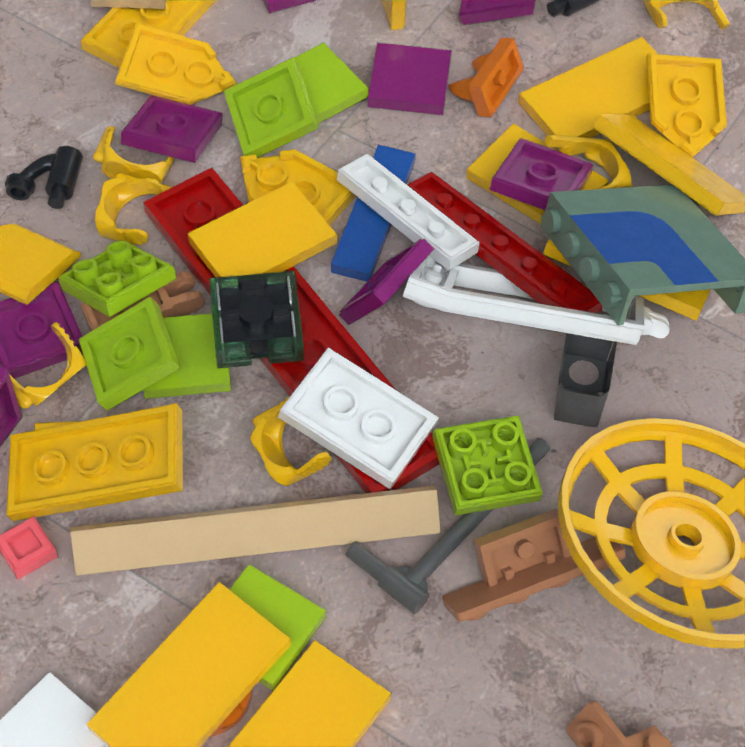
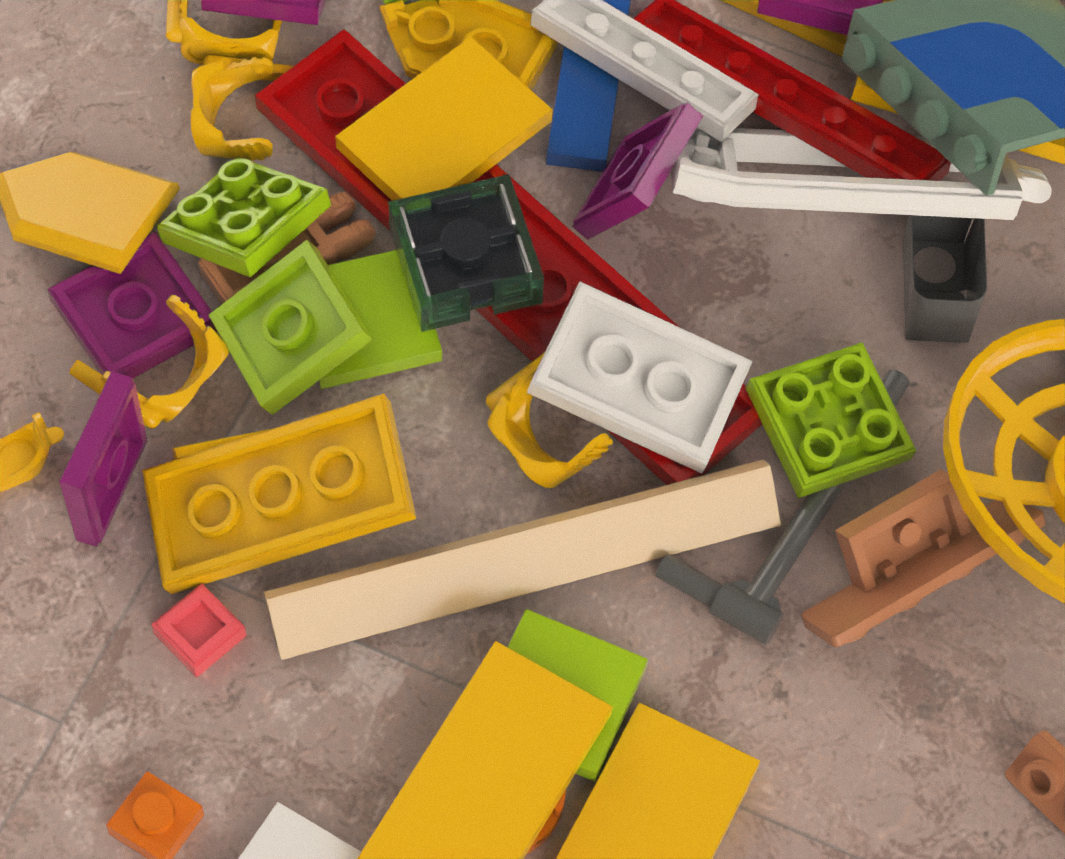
camera: 10 degrees left, 5 degrees up
(62, 179) = (124, 78): black plant -> none

